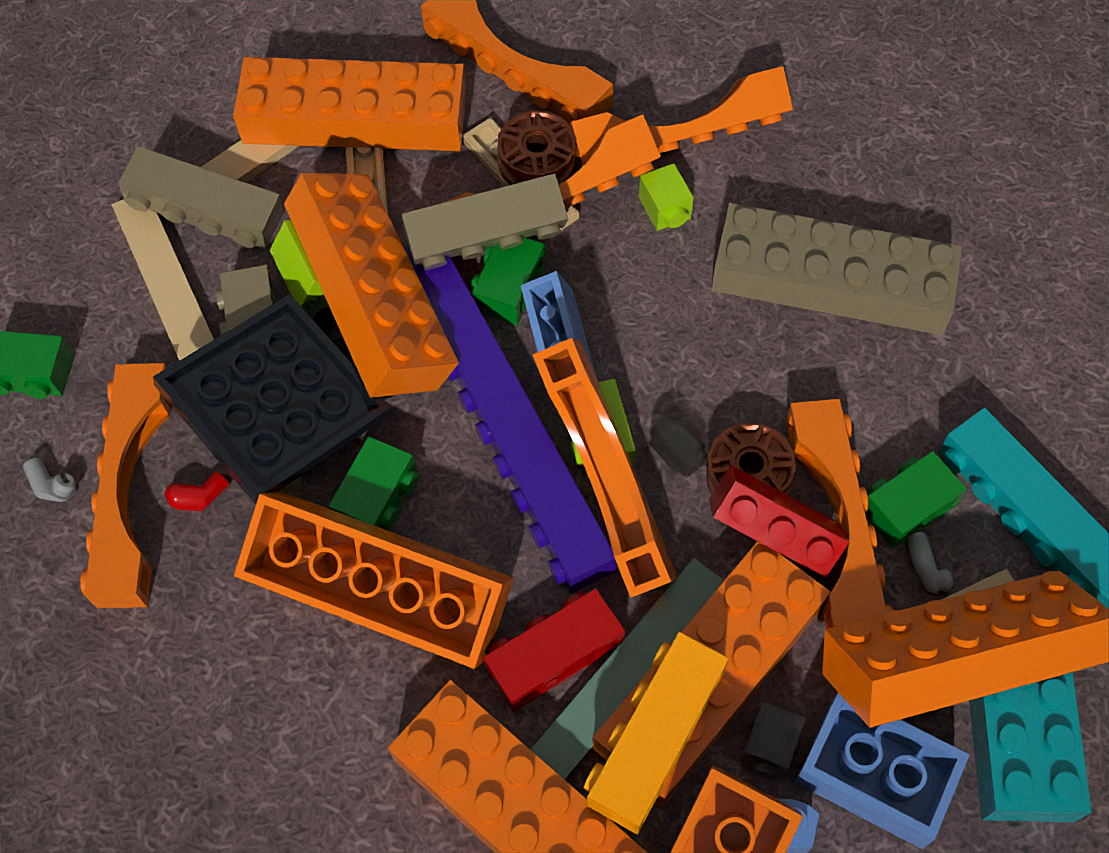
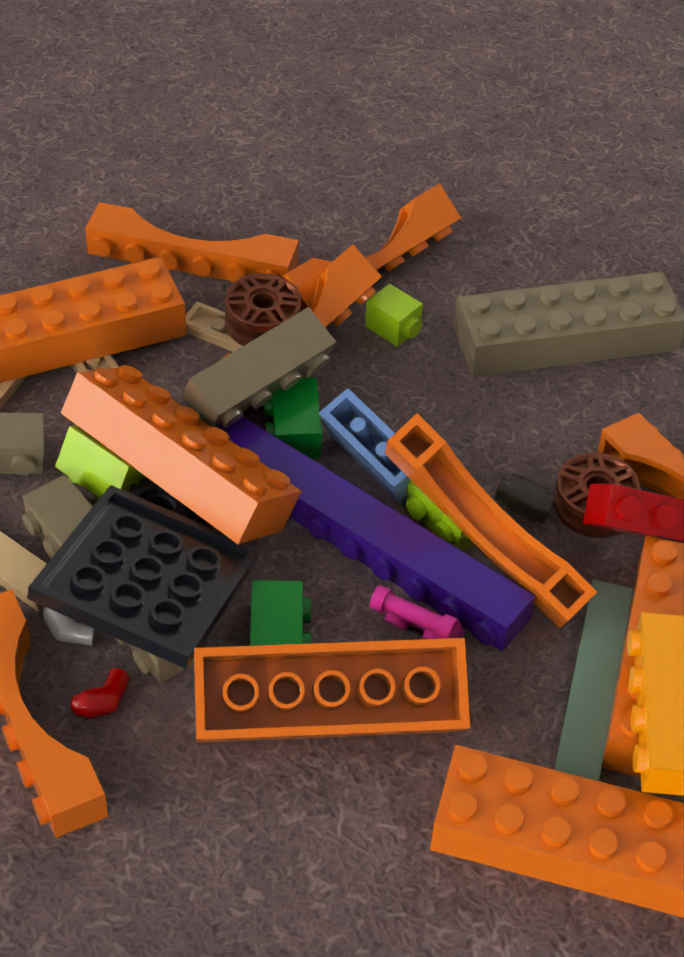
camera: 30 degrees left, 15 degrees down
(497, 533) = (404, 613): none -> dark pink plate
(553, 648) = (521, 694): red brick -> none

